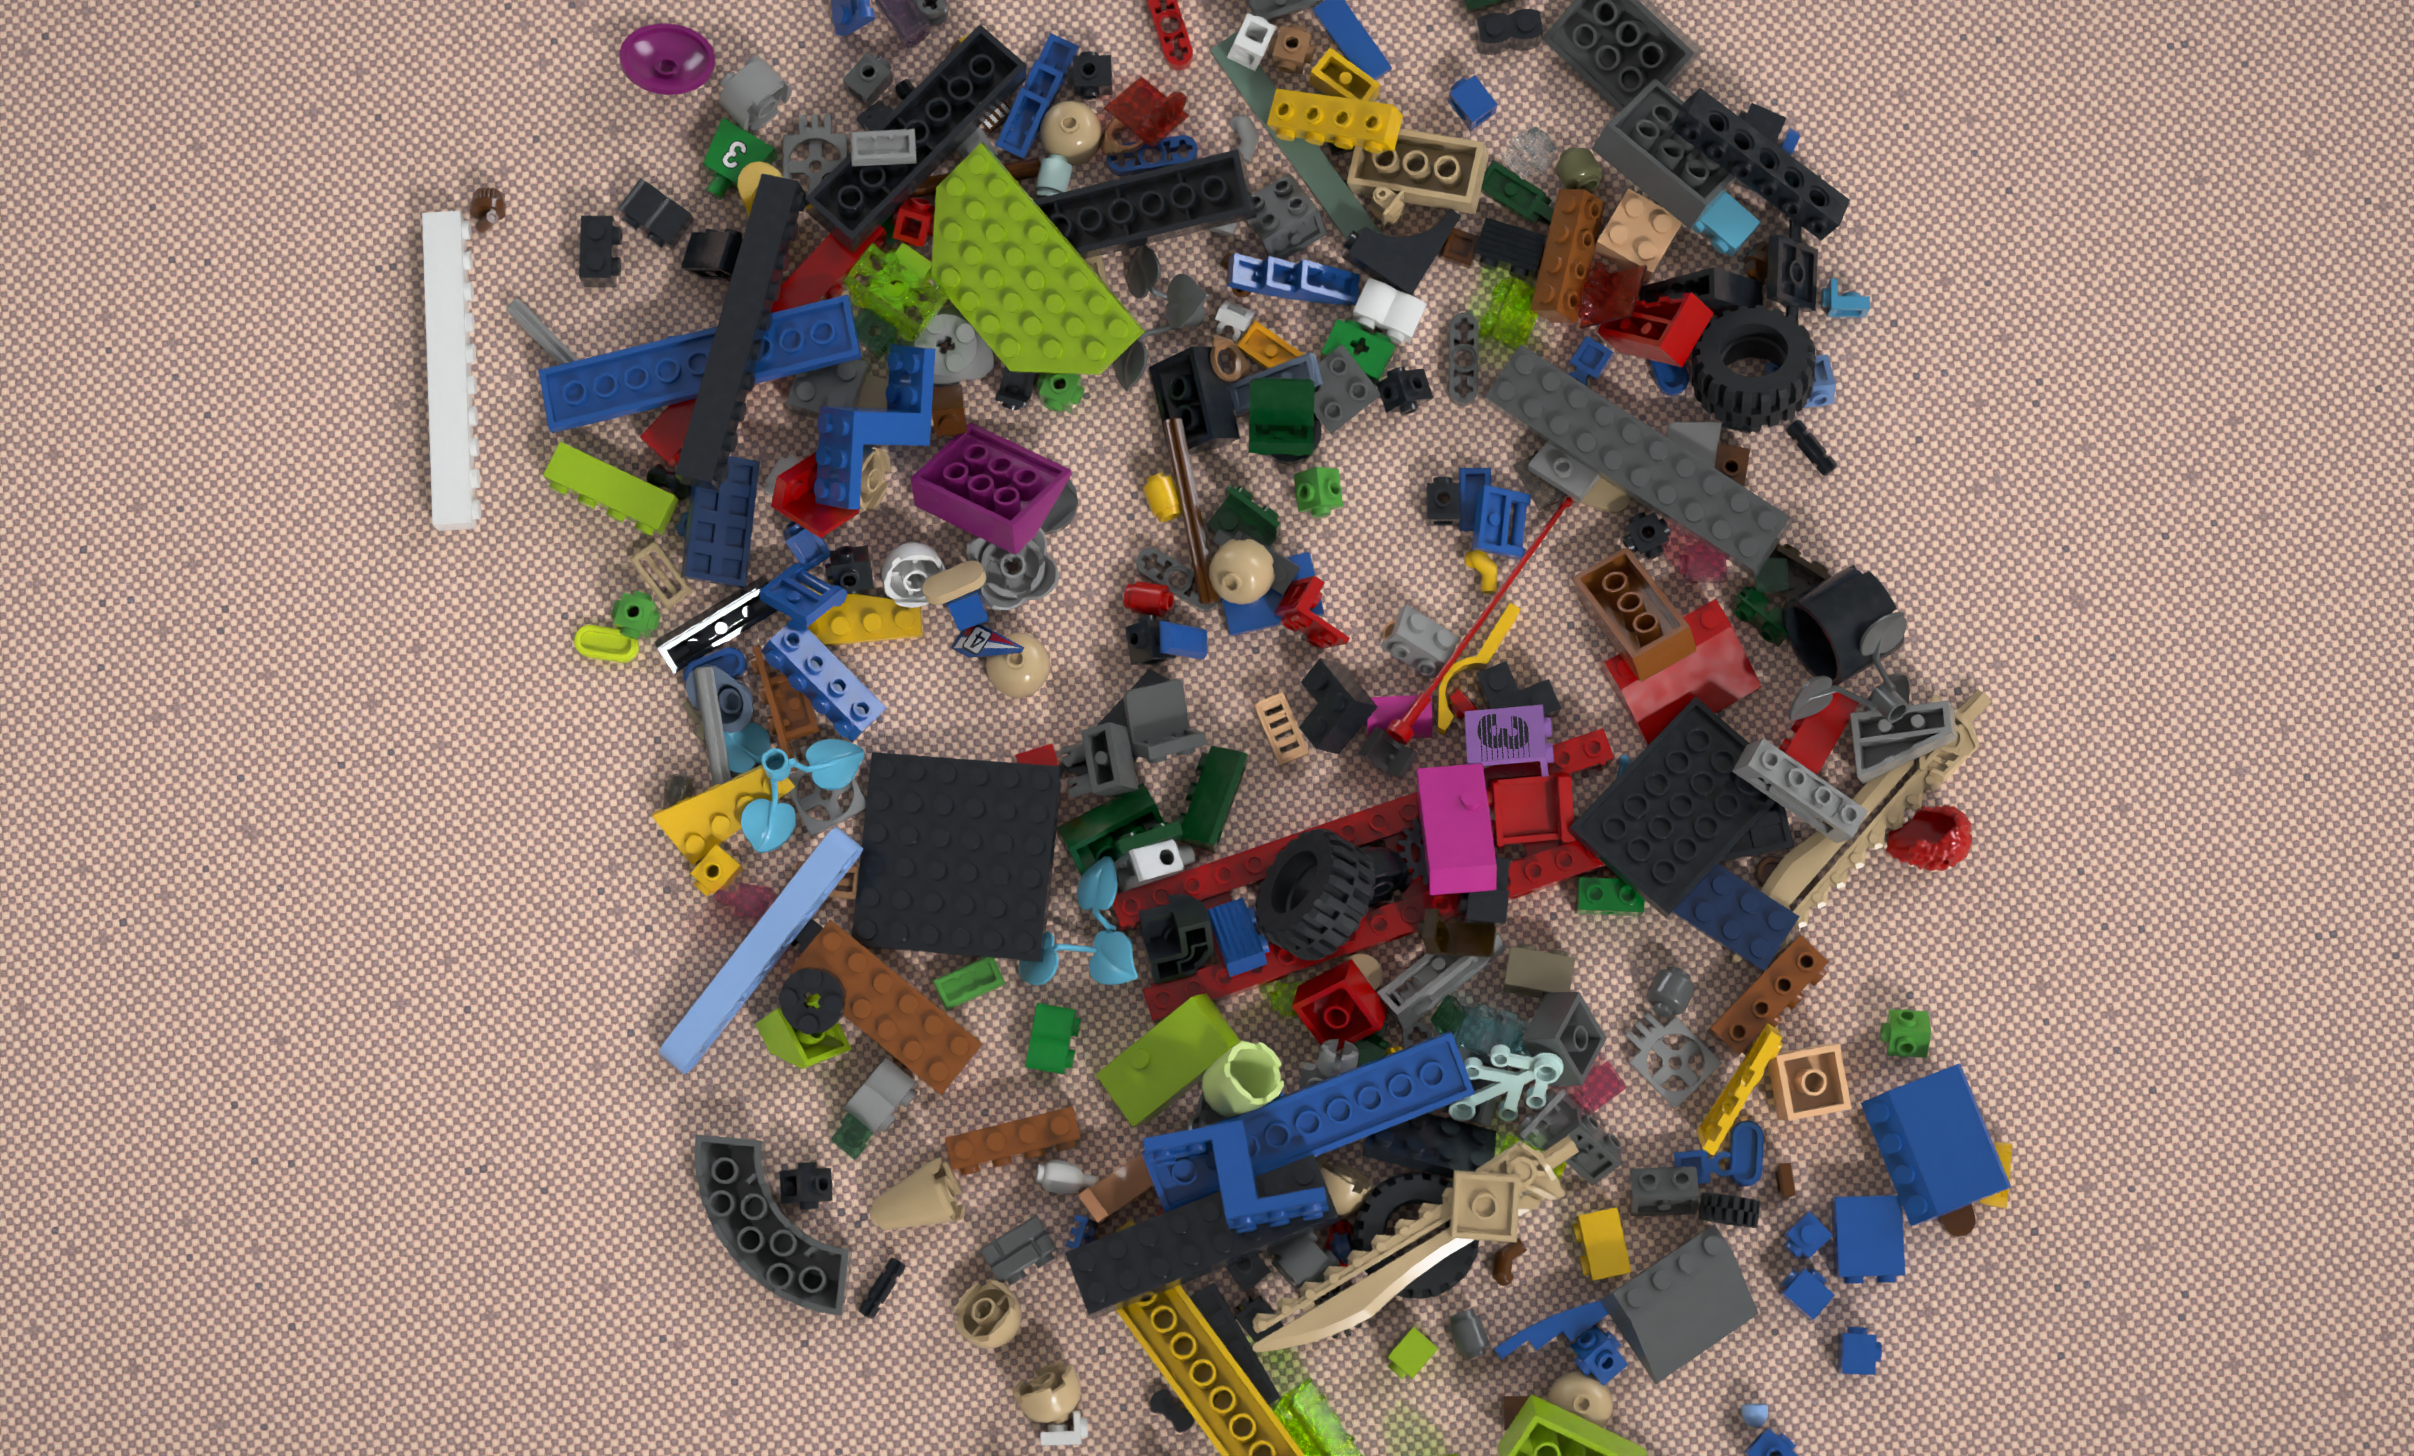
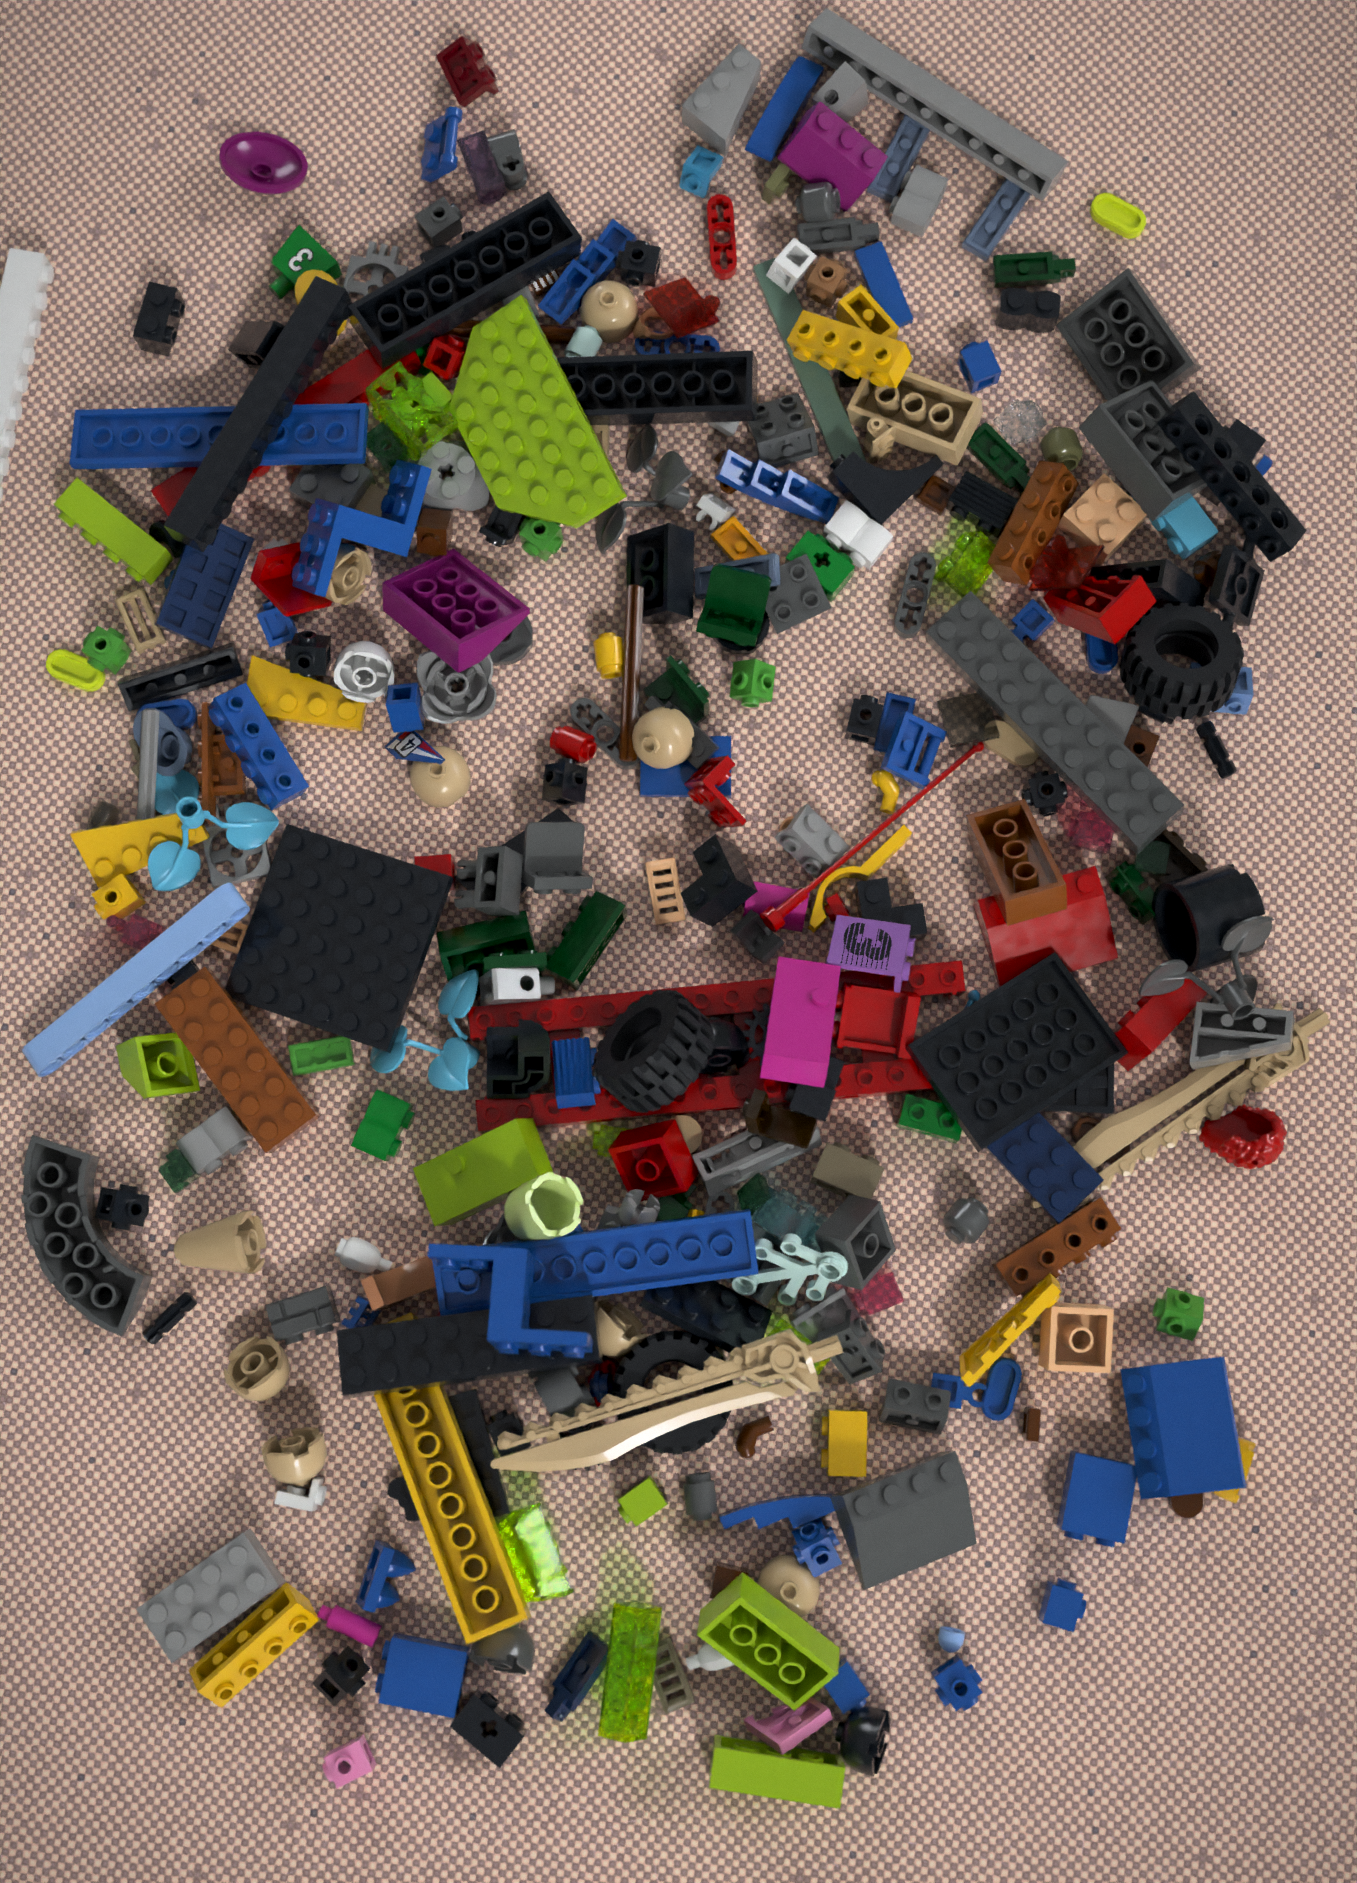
camera: 15 degrees right, 0 degrees up
(487, 207) = (72, 258): reddish brown piece -> none
(540, 332) = (88, 378): light grey axle -> none
(655, 214) = (218, 298): black brick -> none
(753, 94) = (332, 210): light grey brick -> none
(798, 601) = (251, 670): blue plate -> none
(812, 1019) = (151, 1042): black plate -> none
(883, 147) = (430, 276): light grey plate -> none
(954, 582) = (397, 686): tan tile -> none
(1013, 1139) = (323, 1209): dark orange brick -> none
(1183, 640) = (594, 788): blue tile -> none
(1240, 363) = (710, 550): medium nougat piece -> none
(1248, 134) = (768, 349): light grey arm -> none
(1248, 1272) = (509, 1388): black brick -> none
(1404, 390) = (853, 609): black brick -> none
(1485, 1206) = (741, 1383): tan tile -> none
(1563, 471) = (981, 717): light grey plate -> none
(1652, 1040) = (938, 1261): light grey piece -> none
(1729, 1209) = (972, 1440): black tyre -> none
(1800, 790) = (1132, 1062): light grey brick -> none
(1806, 1236) = (1039, 1482): blue brick -> none
(1806, 1292) = (1027, 1535): blue brick -> none
(1848, 305) = (1278, 627): dark azure bracket -> none

